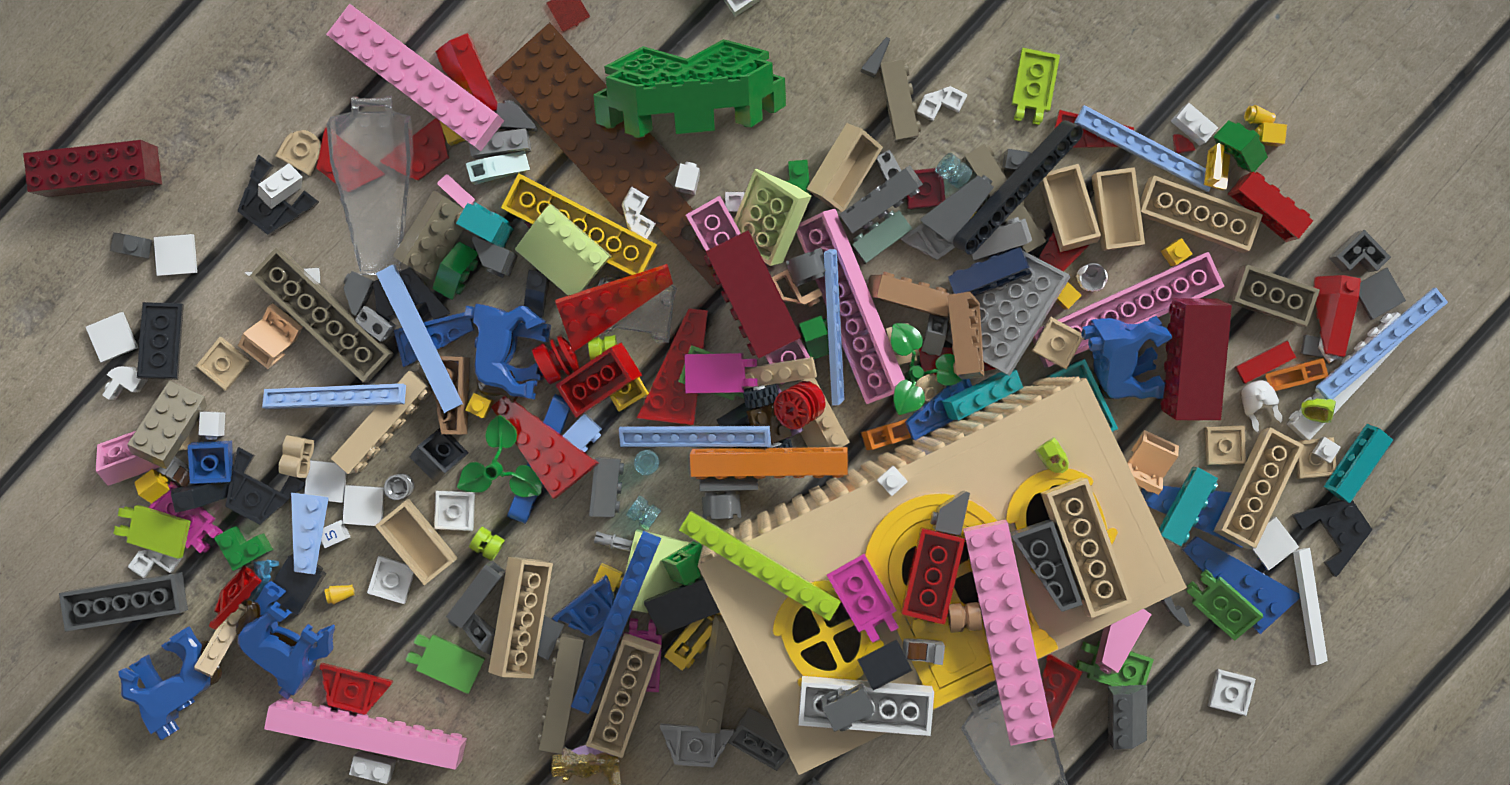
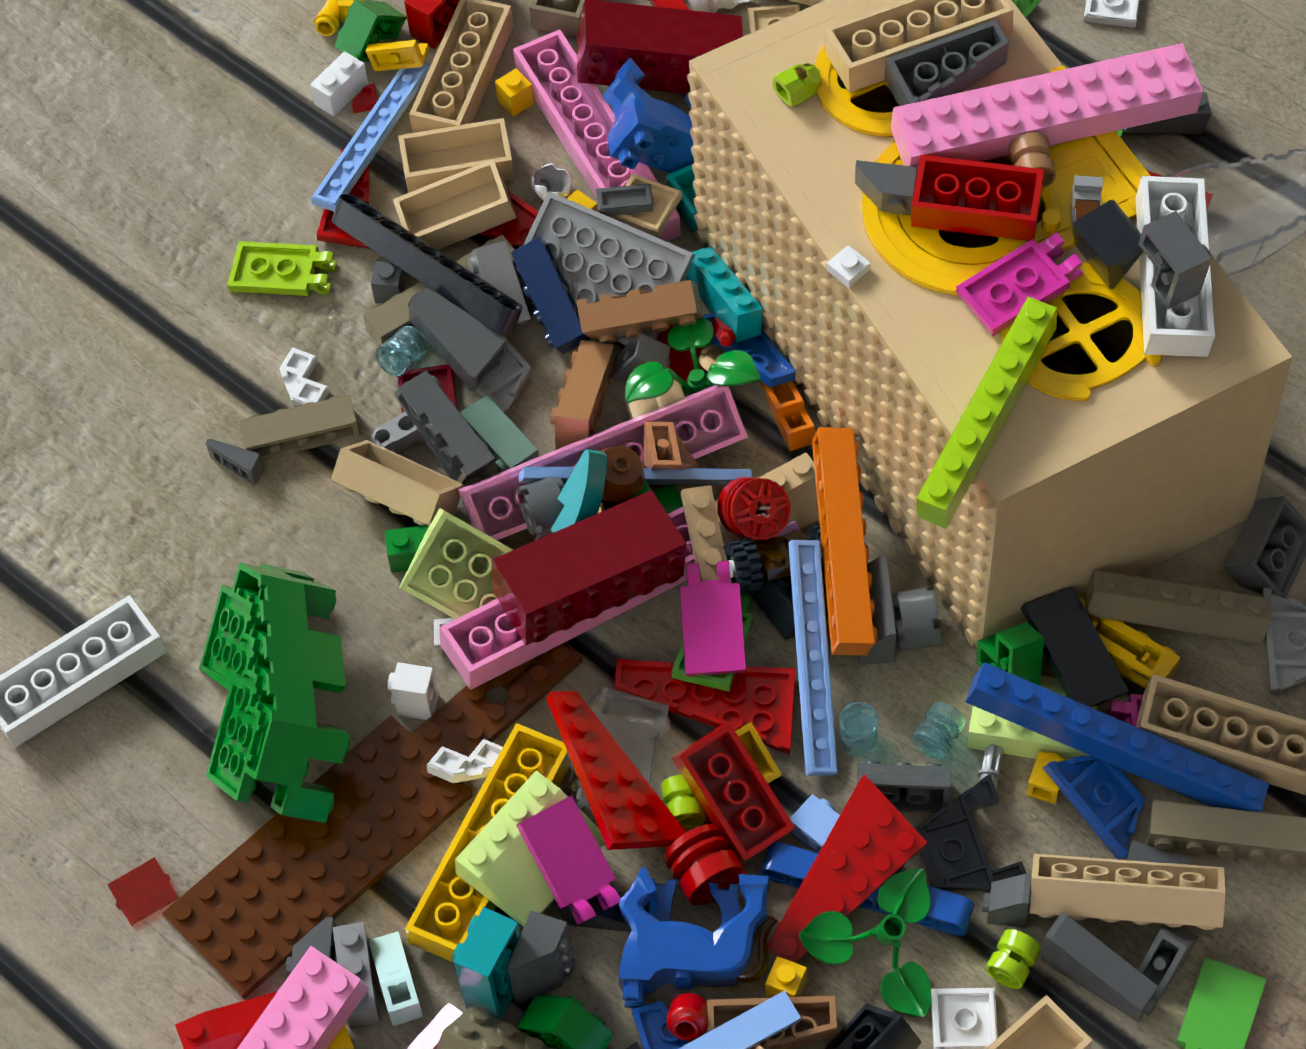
camera: 85 degrees left, 30 degrees down
(455, 344) = (687, 1017): none -> red head
(522, 544) = (1008, 901): none -> dark grey slope
(552, 275) = (569, 858): none -> dark pink tile
(562, 515) = (954, 850): none -> black wing
(800, 290) = (582, 490): none -> teal slope
(825, 314) = (623, 474): none -> reddish brown cone
(850, 349) = (665, 448): none -> nougat slope
(948, 392) = (723, 332): none -> red bar
(1059, 328) = (624, 200): none -> dark grey tile

